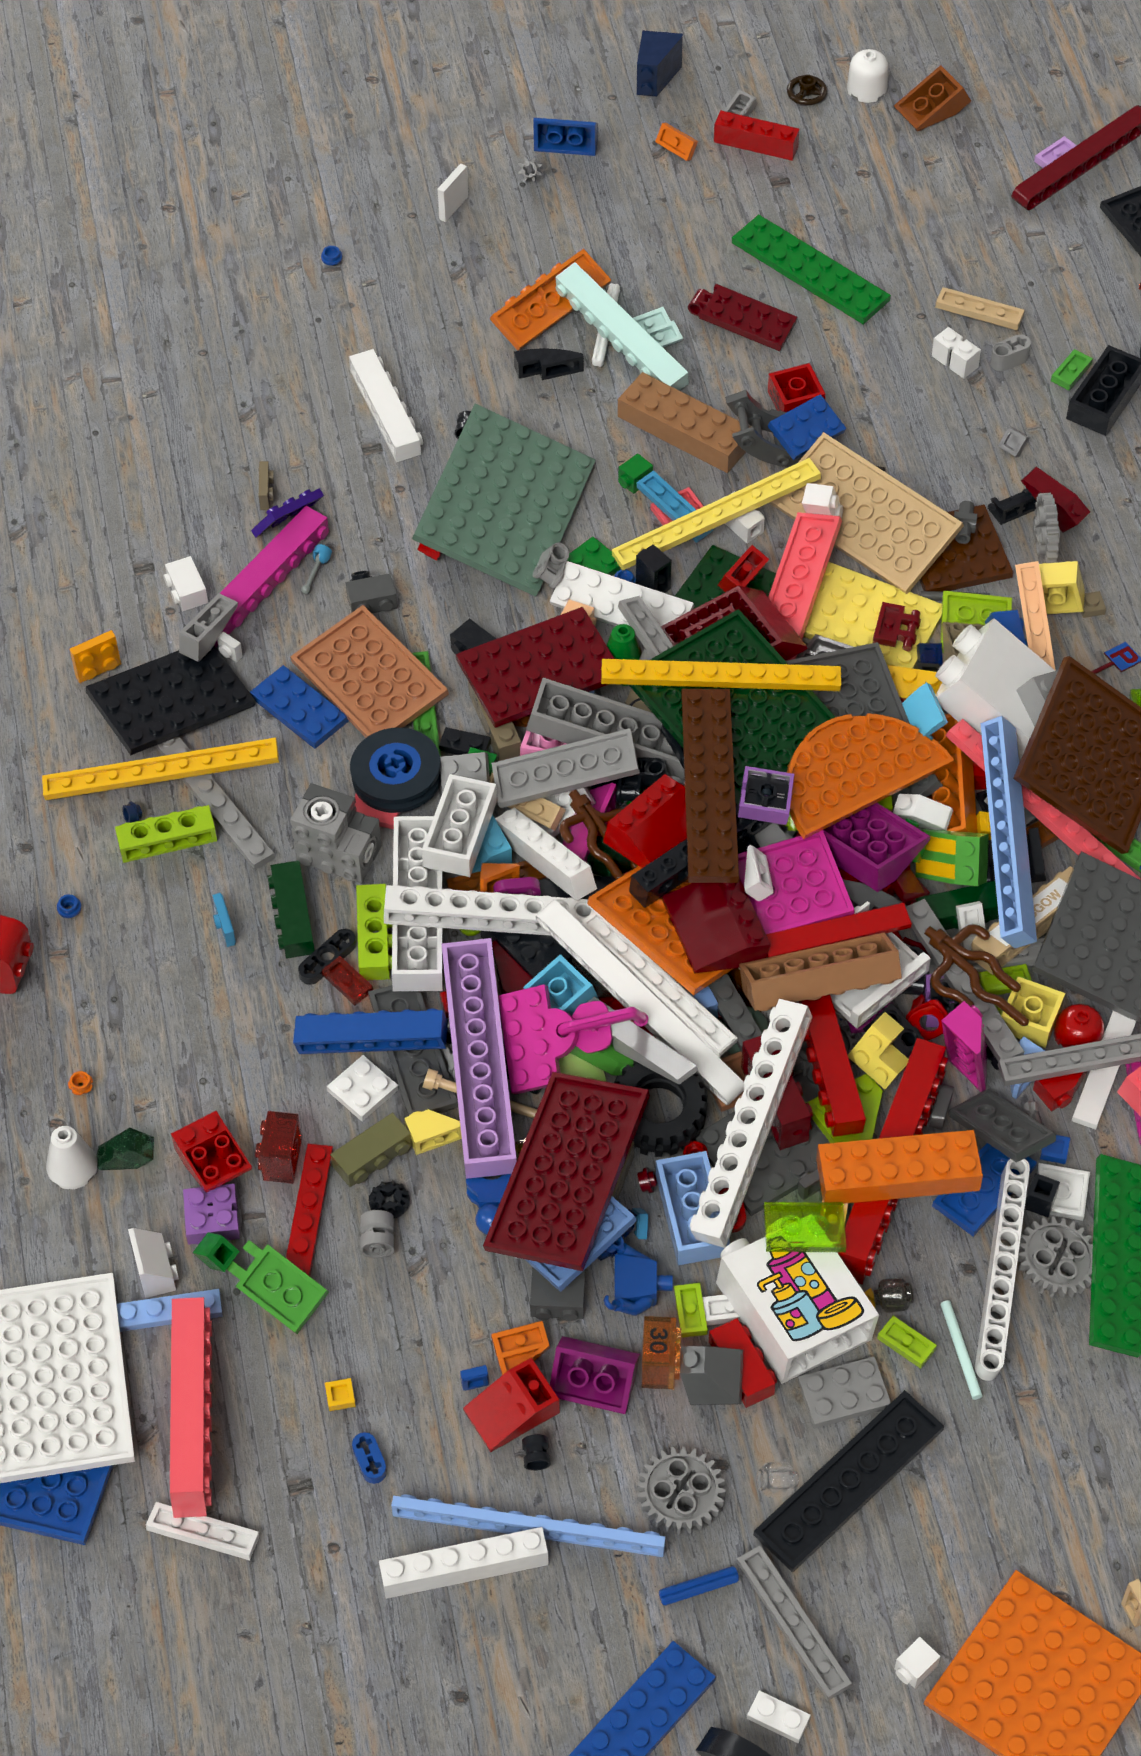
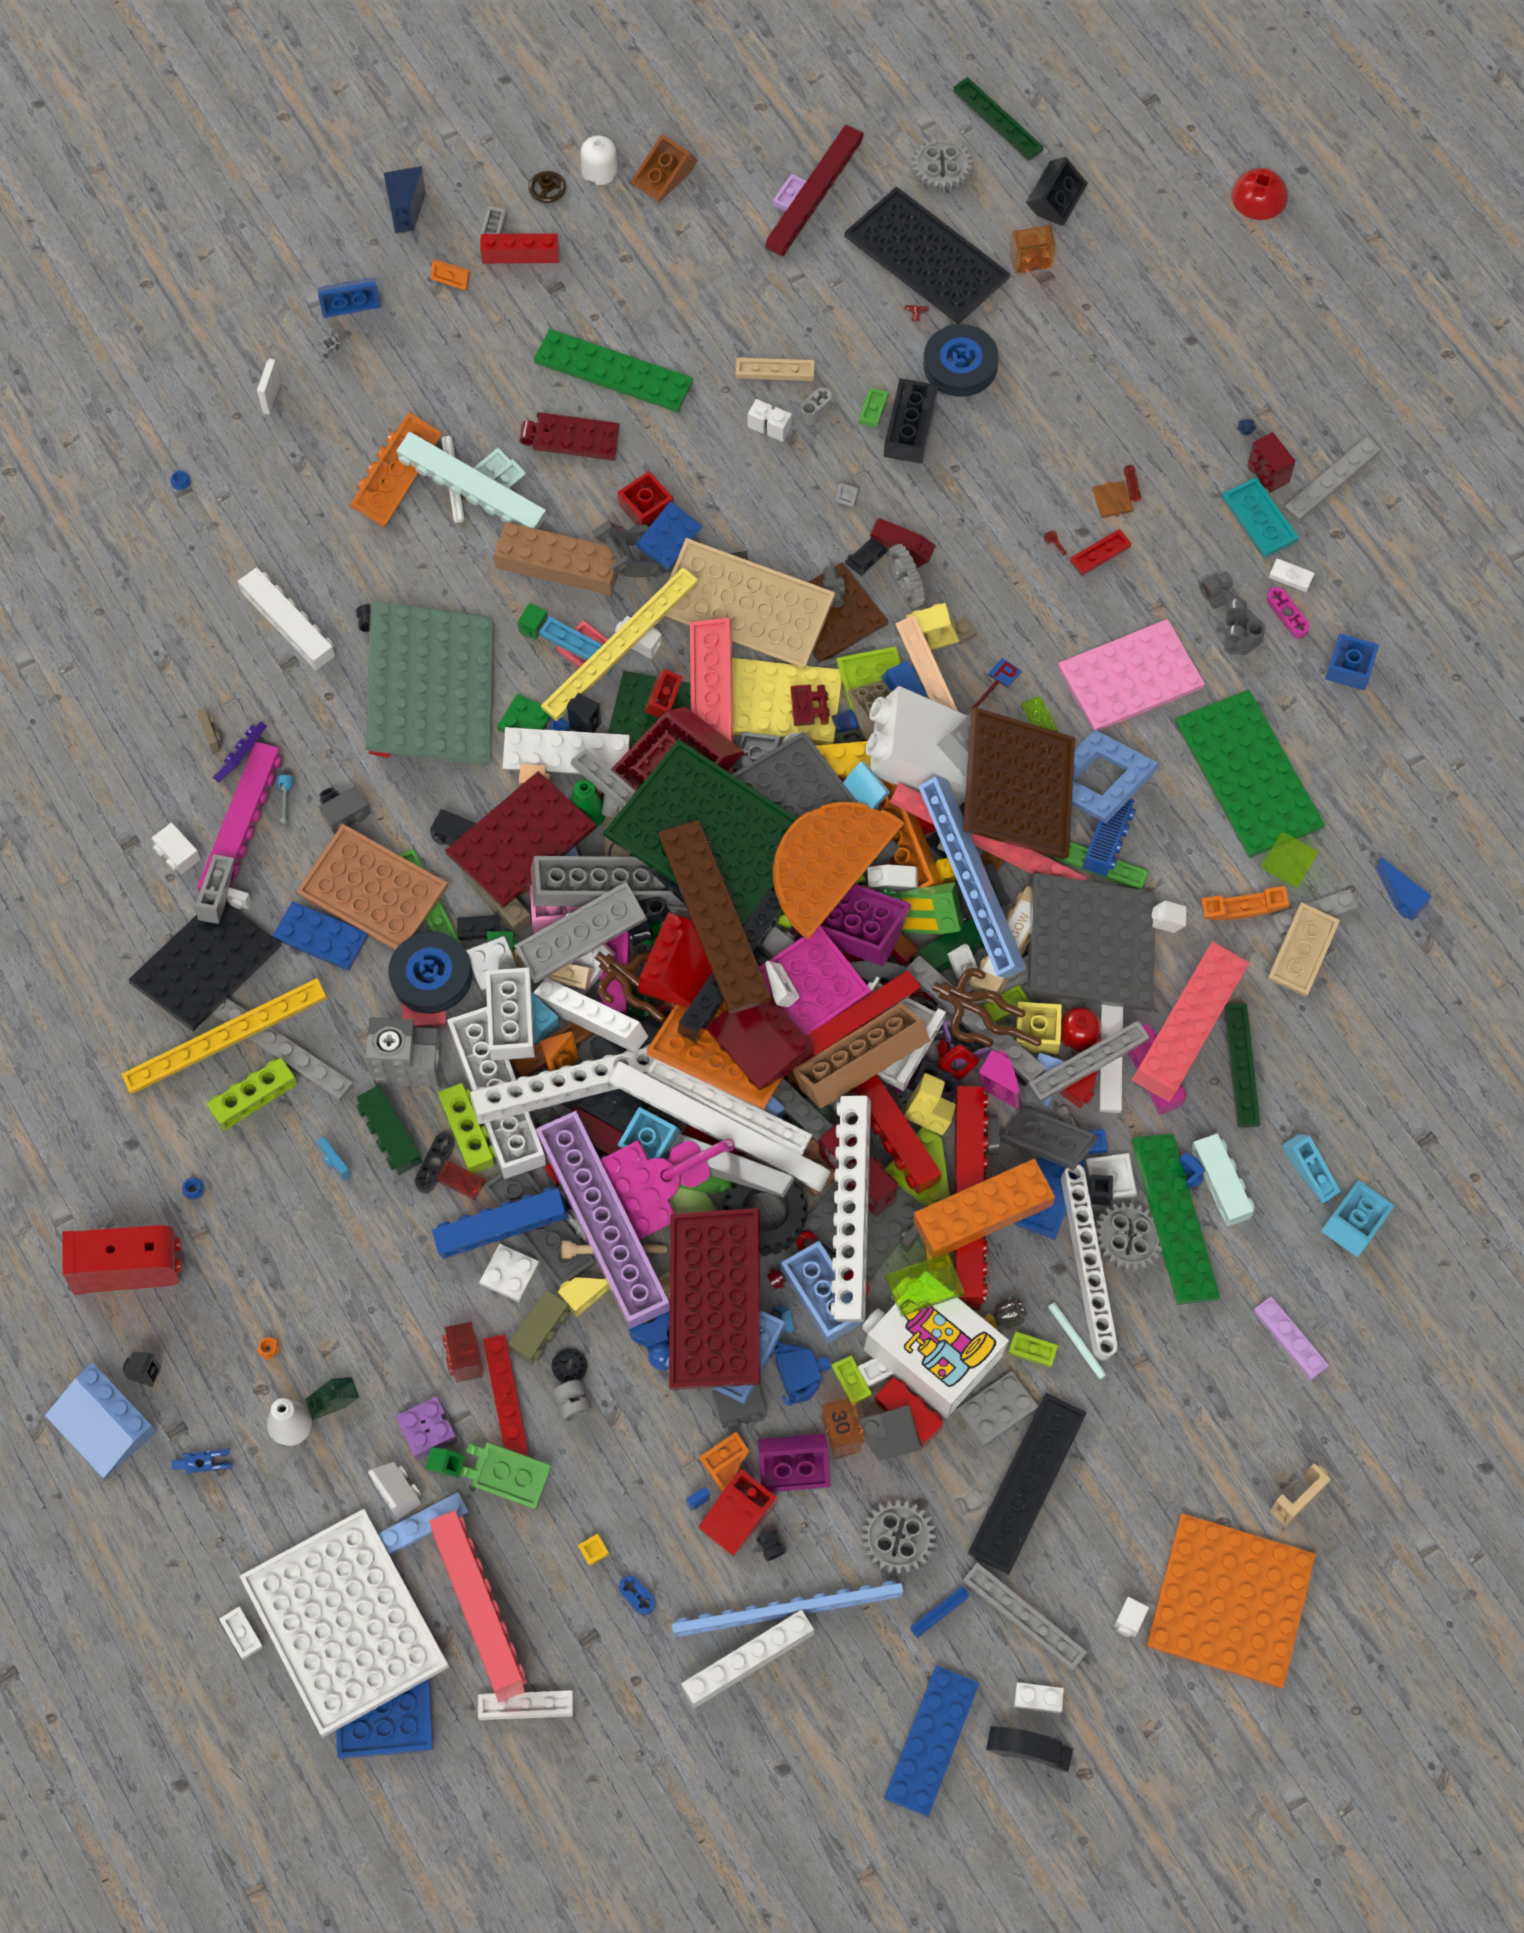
camera: 20 degrees left, 10 degrees up
(95, 656) = (124, 947): light orange plate -> none
(131, 812) = (214, 1083): dark blue plate -> none
(210, 1152) = (406, 1376): red slope -> none
(524, 885) = (577, 1056): magenta beam -> none
(547, 362) = (415, 534): black slope -> none
(552, 564) = (493, 734): light grey piece -> none
(721, 674) = (685, 807): yellow plate -> none
(766, 795) = (766, 913): piece -> none
(821, 500) = (709, 607): white brick -> none

